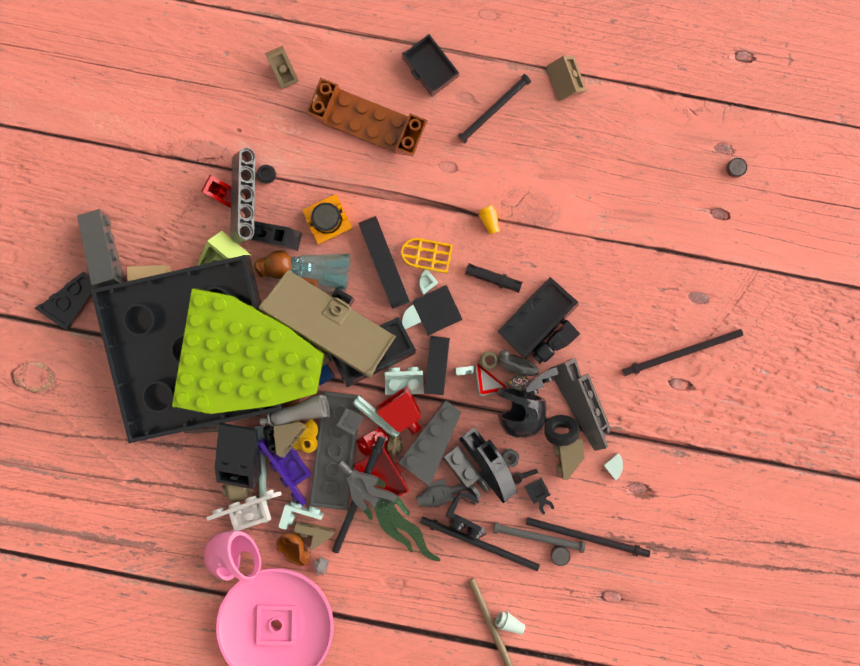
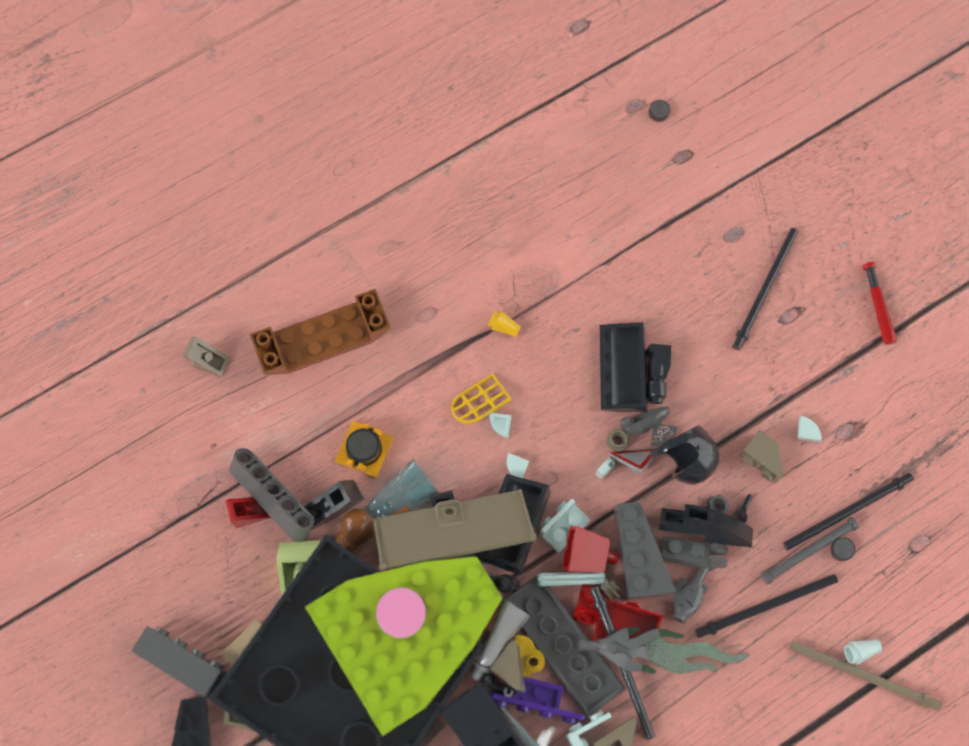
camera: 45 degrees left, 15 degrees down
(244, 346) = (400, 612): none -> bright pink tile
(266, 174) = (274, 459): black plate -> none
(333, 383) = (506, 583): none -> black pin
(350, 421) = (552, 602): dark grey panel -> none
(384, 262) = (449, 440): black beam -> none
(430, 65) = (333, 246): black container -> none
(437, 310) = (533, 439): black tile -> none
(437, 365) = (579, 485): black slope -> none
(458, 522) = (732, 598): black piece -> none
(494, 278) = (549, 370): black pin -> none
(525, 80) = (417, 278): black bar -> none
(537, 382) = (676, 418): slope -> none
(538, 492) = (770, 512): black plate -> none
(561, 421) = (740, 448): black tyre -> none
(566, 77) = (455, 160): dark tan panel -> none
(583, 402) = (728, 401): dark grey wedge -> none
(739, 441) = (883, 317): none -> red piece

